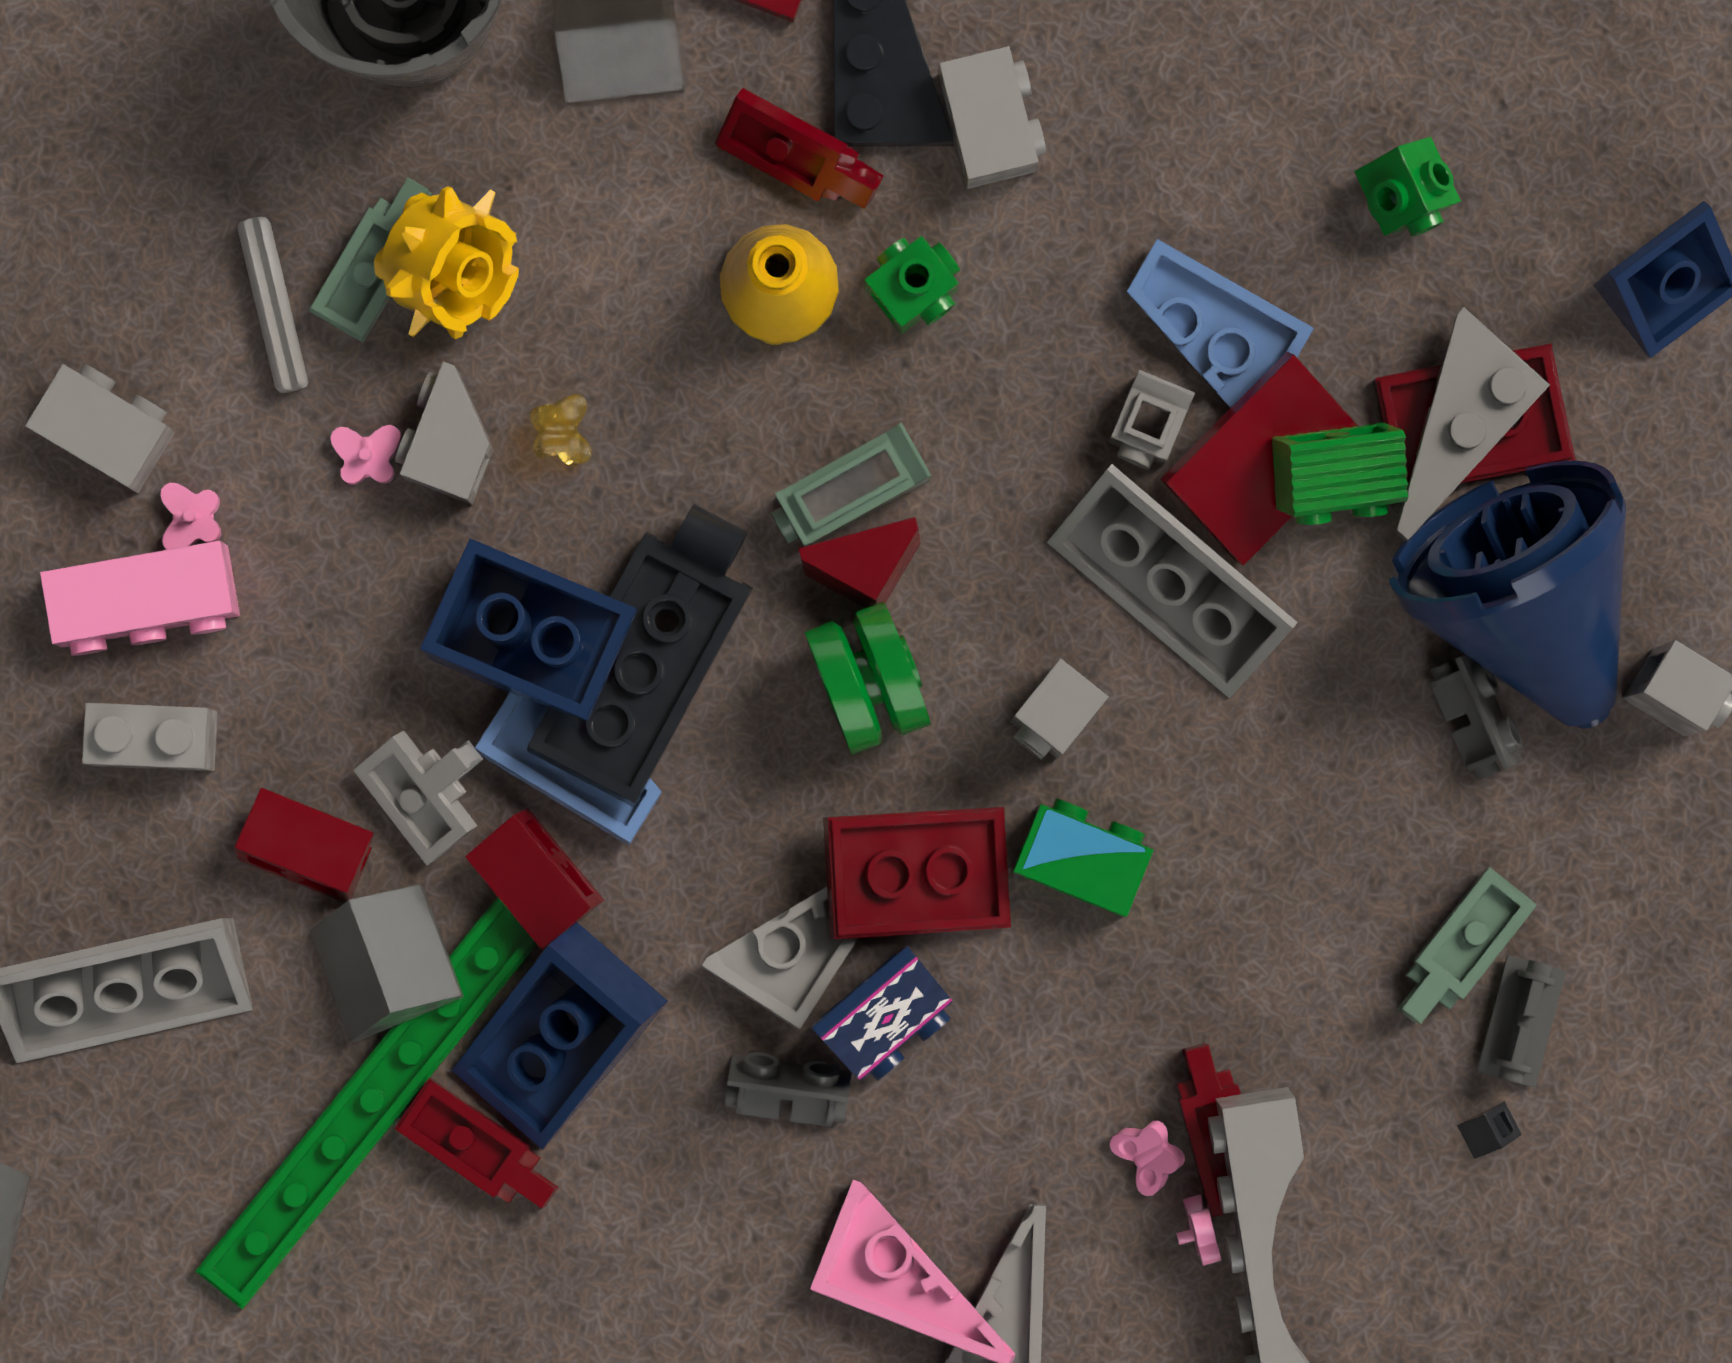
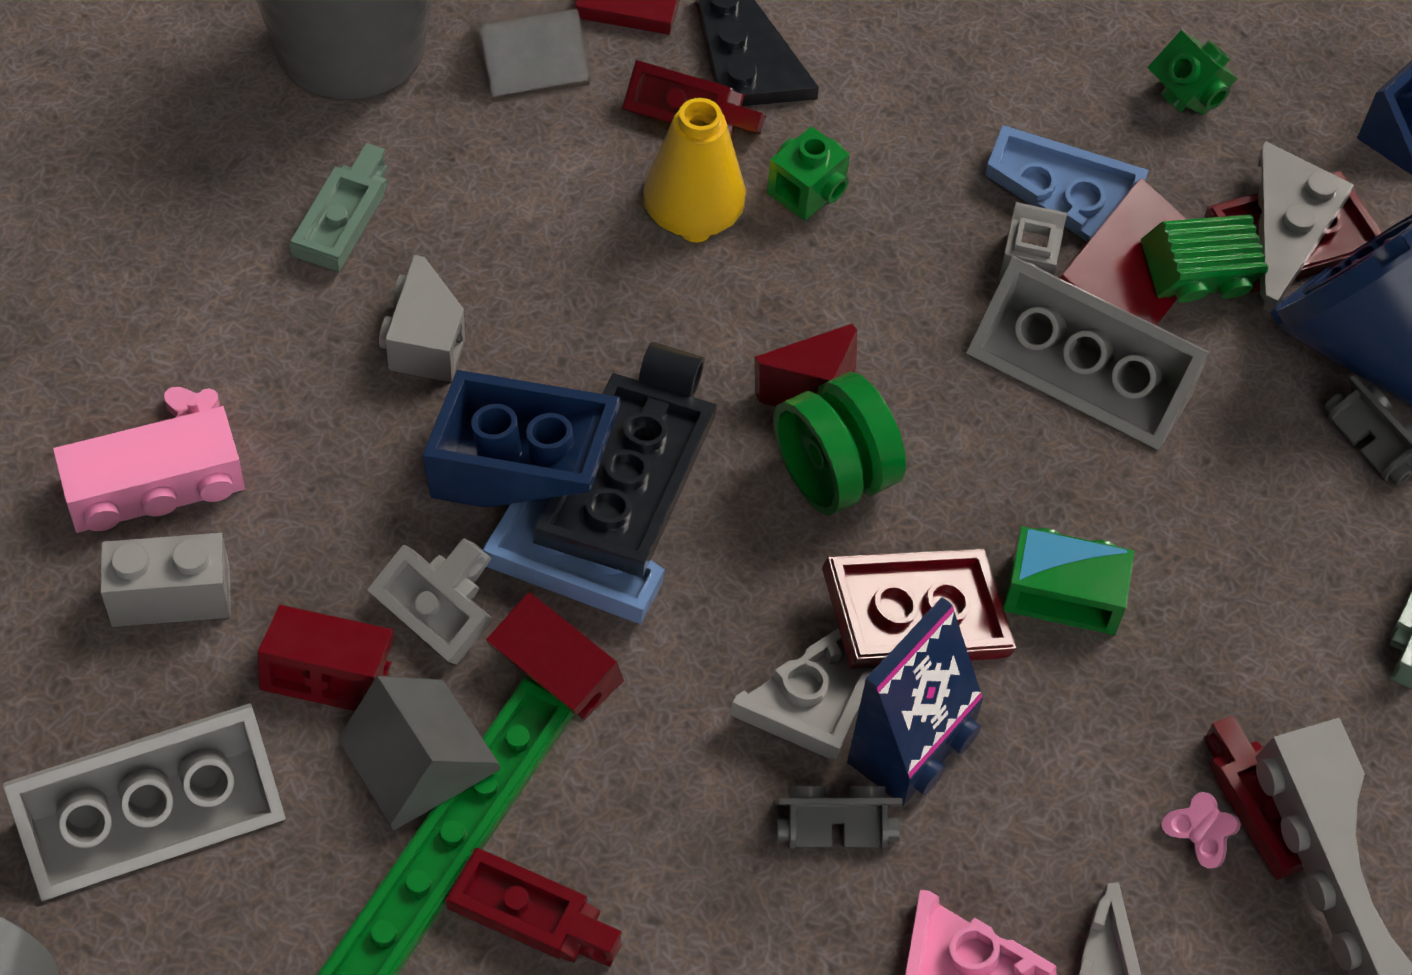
camera: 10 degrees left, 30 degrees down
(101, 427) = (105, 347): light grey brick -> none
(272, 304) = (256, 252): light grey axle -> none
(366, 455) = (351, 351): bright pink piece -> none
(448, 261) = (410, 184): yellow brick -> none
(559, 430) = (522, 311): clear yellow piece -> none
(559, 1034) = (598, 794): dark blue slope -> none
(850, 488) = (796, 312): sand green window -> none
(990, 117) = (845, 65): light grey brick -> none
(1057, 711) = (1016, 449): light grey brick -> none
(1200, 1230) = (1276, 886): bright pink piece -> none

